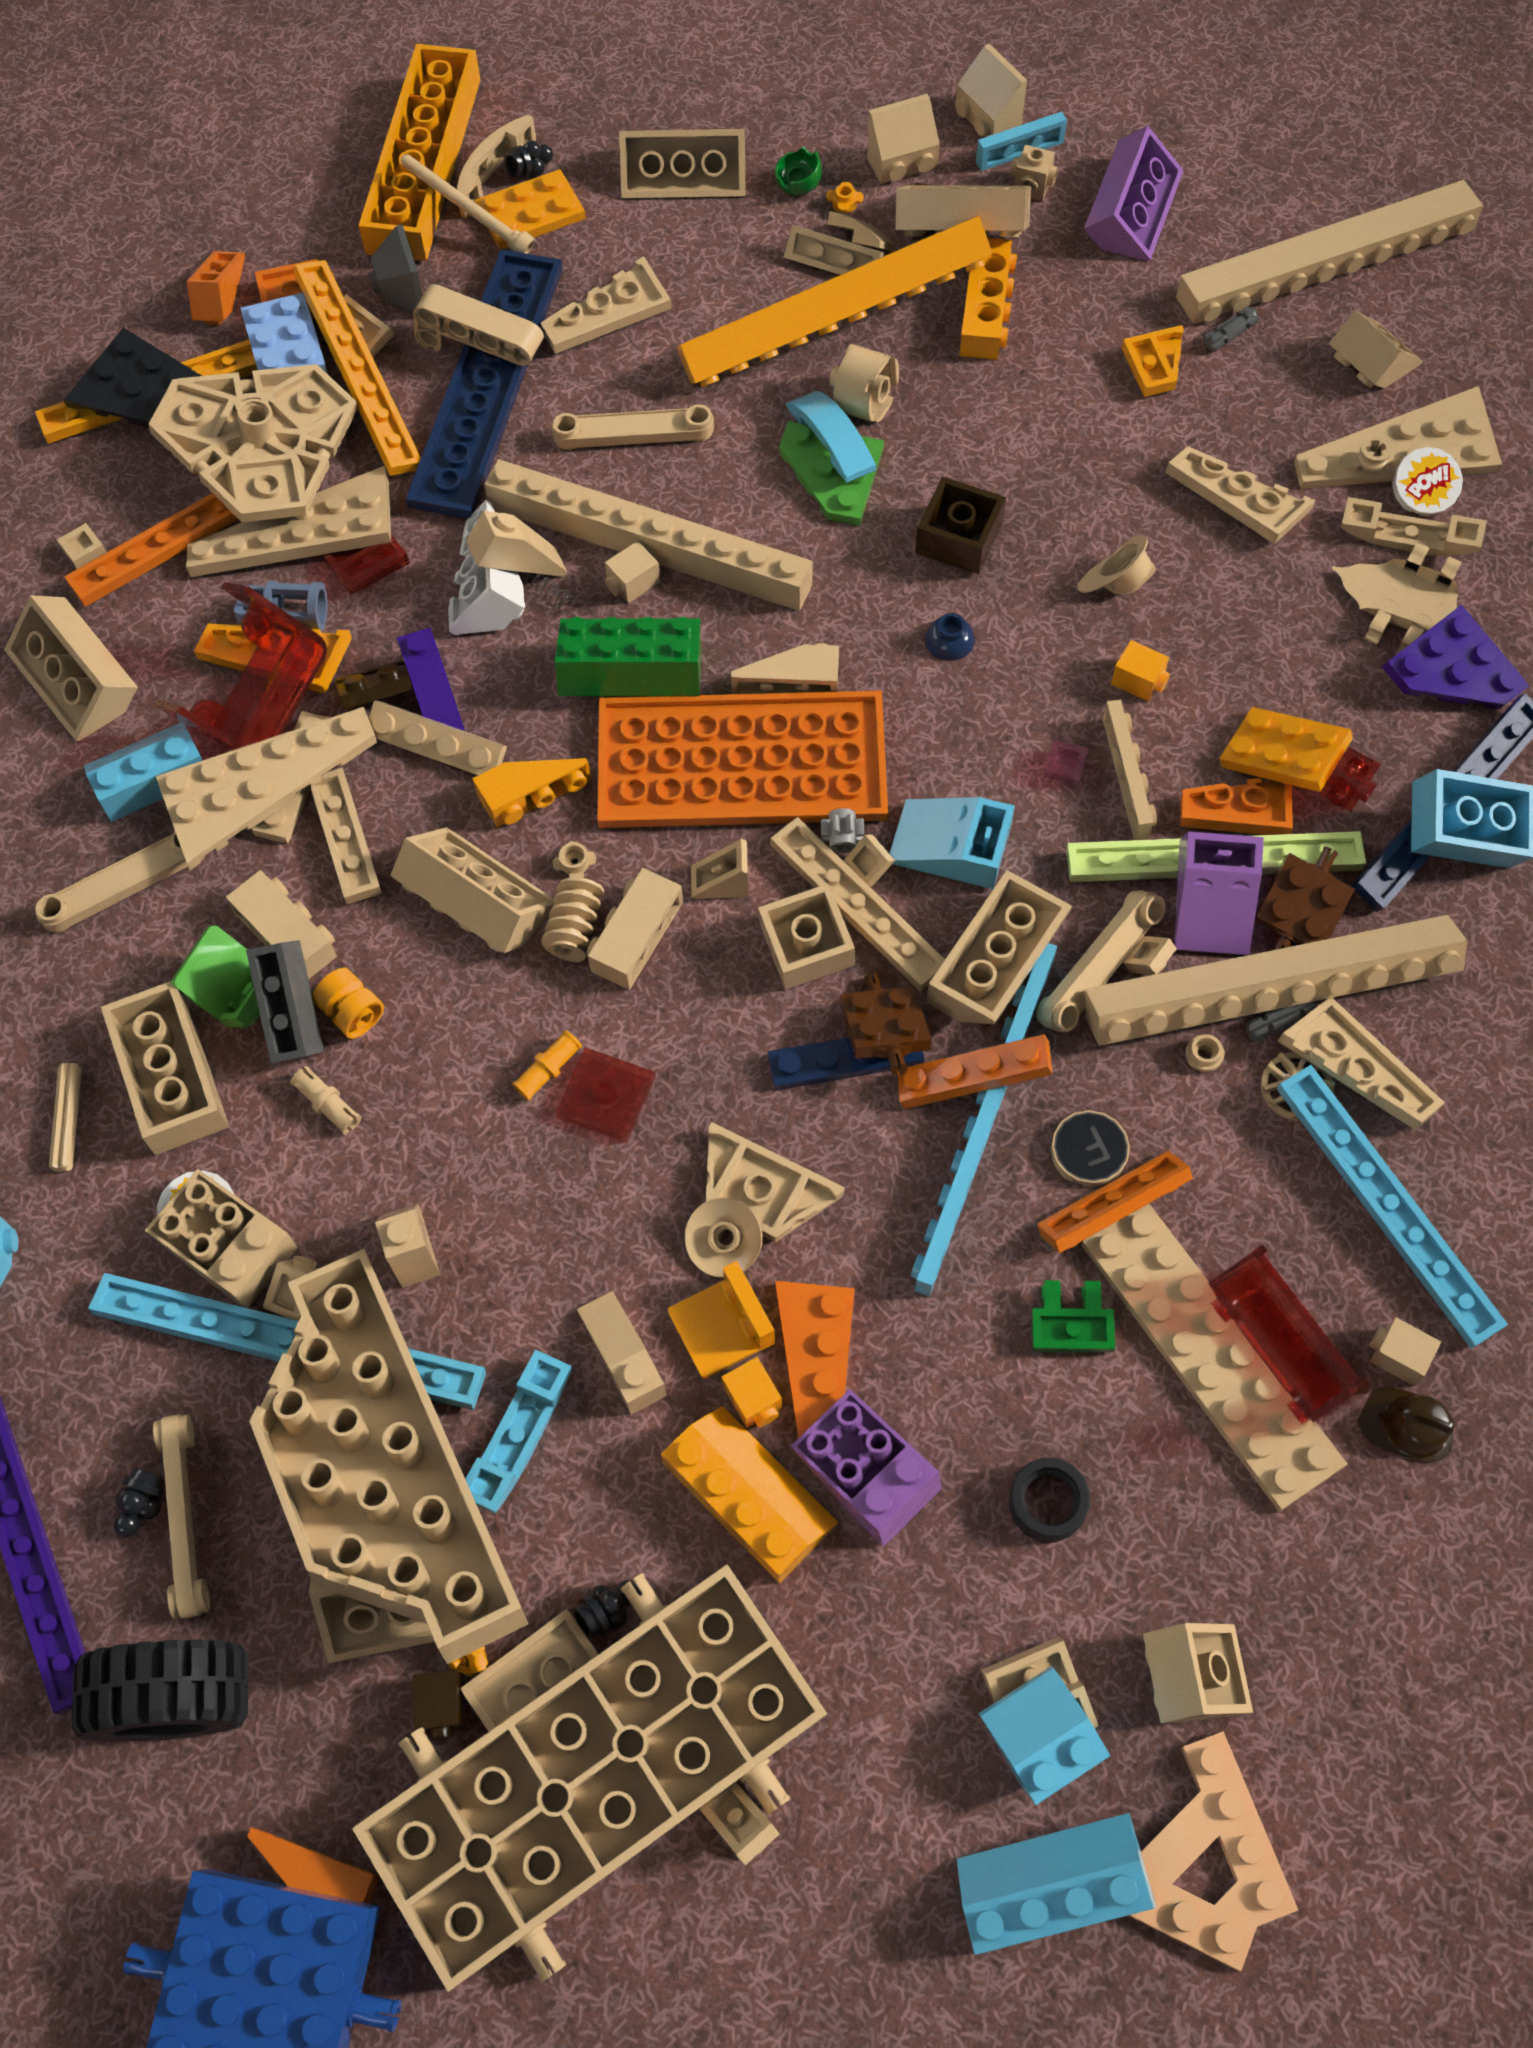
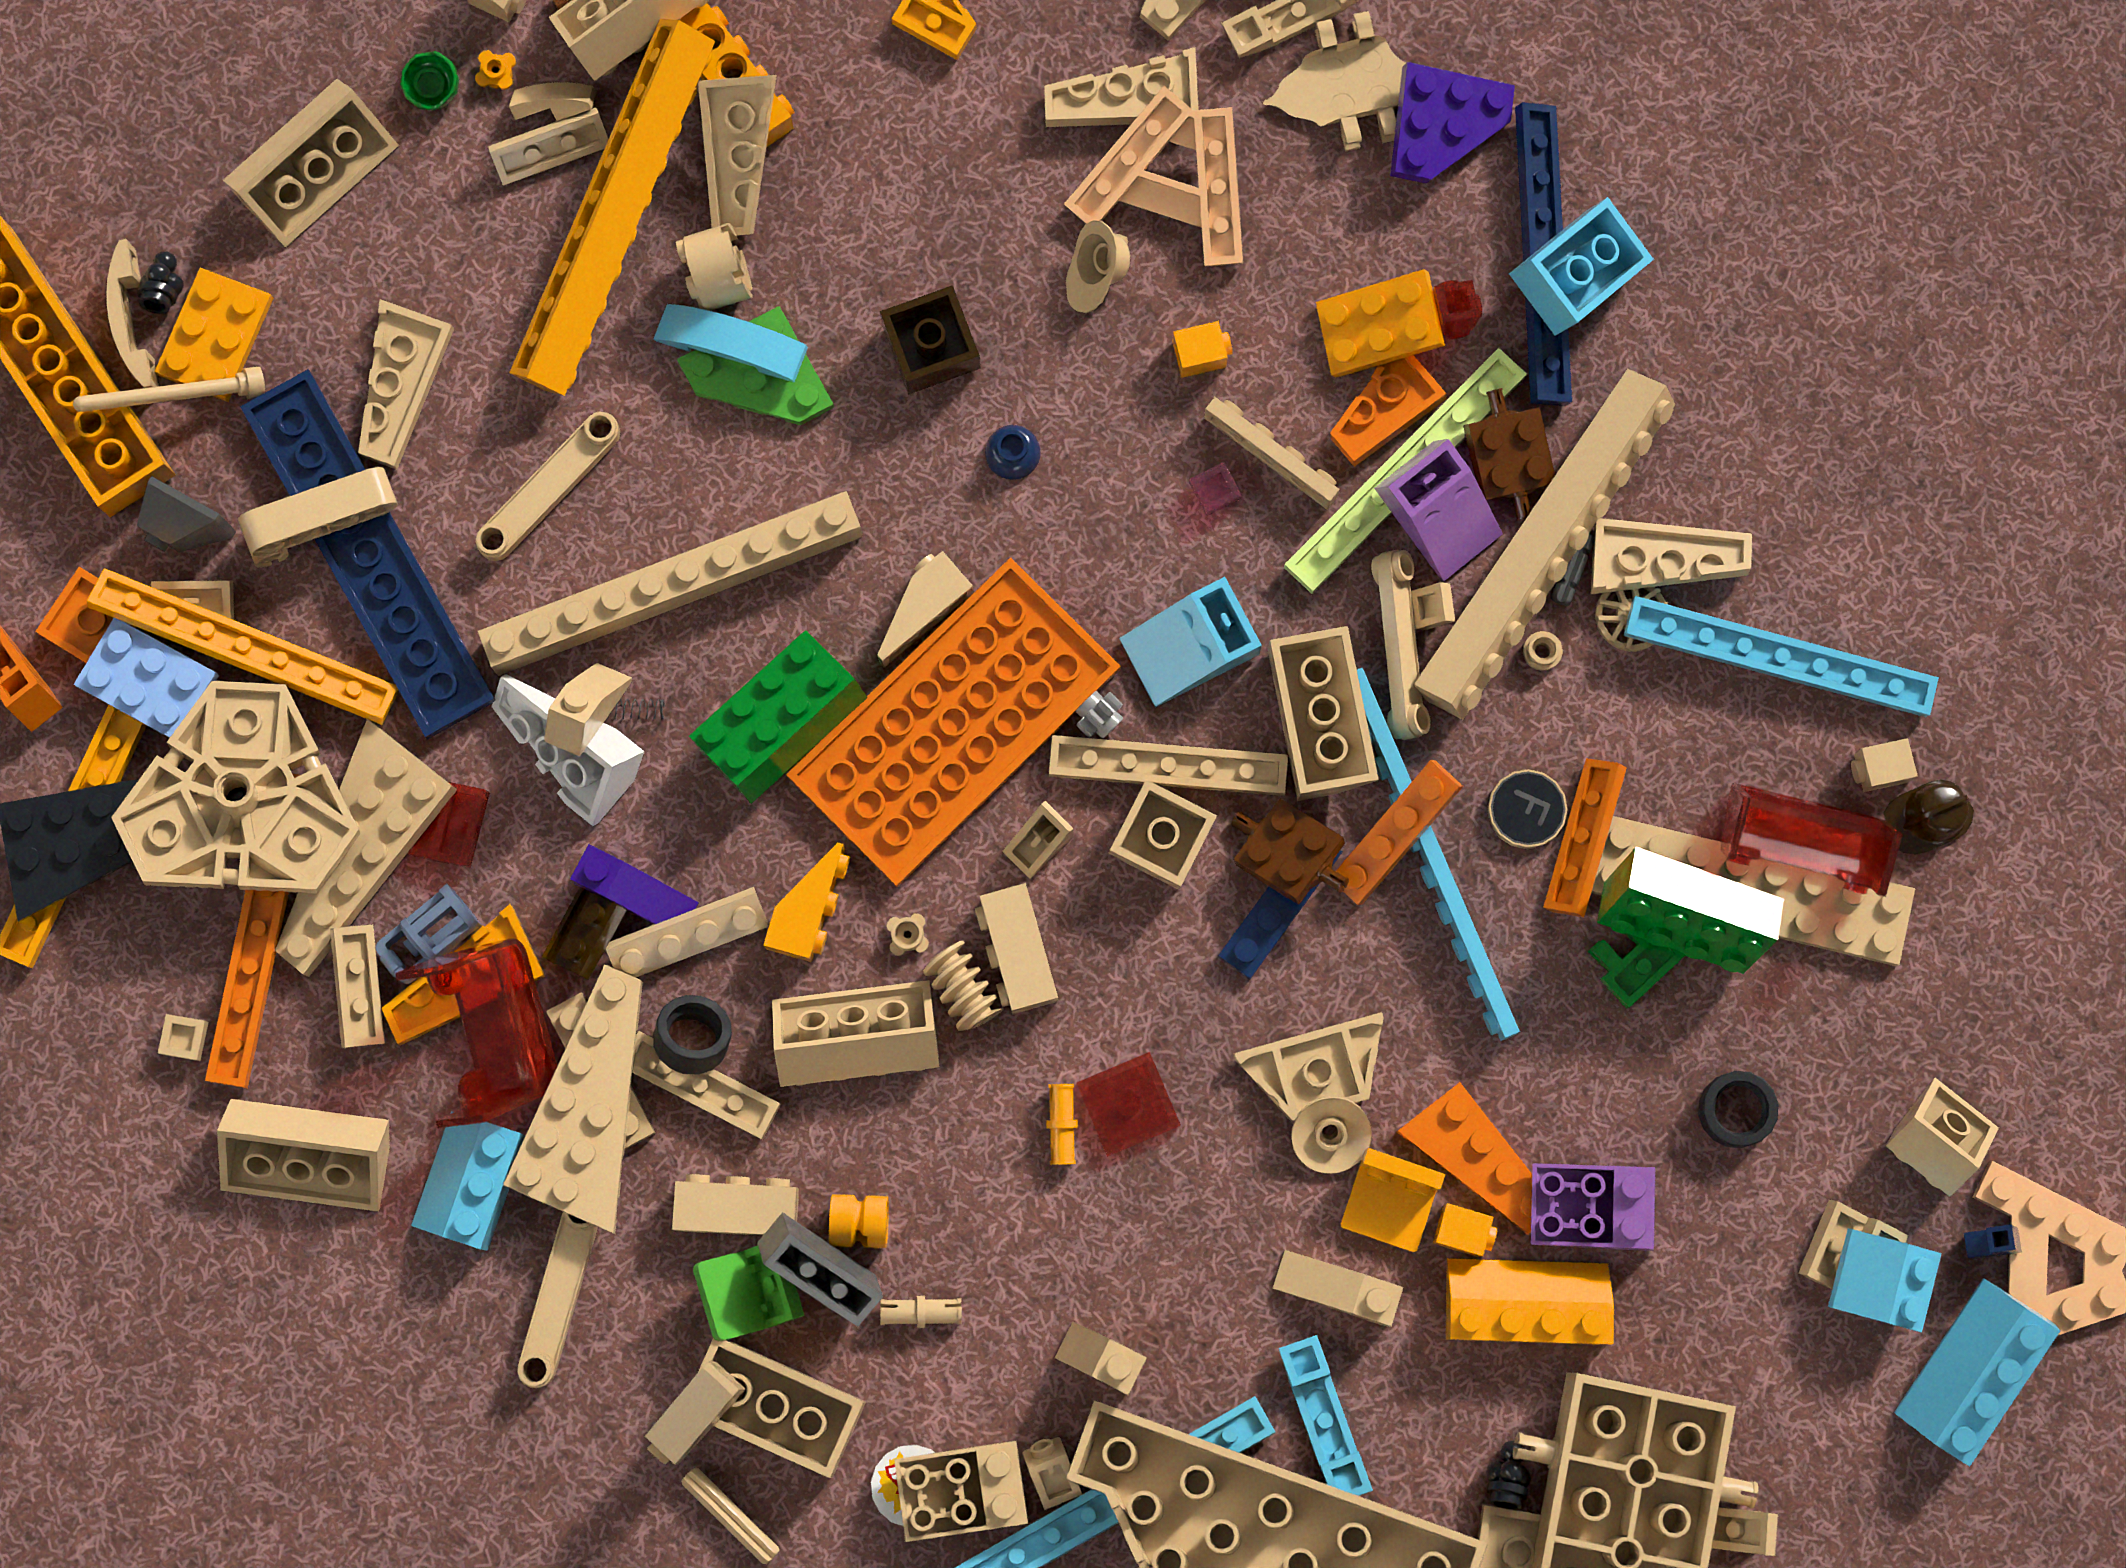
camera: 45 degrees left, 15 degrees up
(103, 1004) = (693, 1413): none -> tan slope
(207, 600) = (357, 986): none -> tan plate
(359, 812) = (683, 1059): none -> black tyre
(632, 572) = (693, 632): tan brick -> none
(869, 860) = (1143, 721): tan plate -> none
(951, 320) = (735, 142): none -> tan wing
(1145, 1309) = (1690, 911): none -> brick
(1165, 1794) = (1993, 1242): none -> dark blue piece
(1232, 593) = (1124, 179): none -> light nougat plate

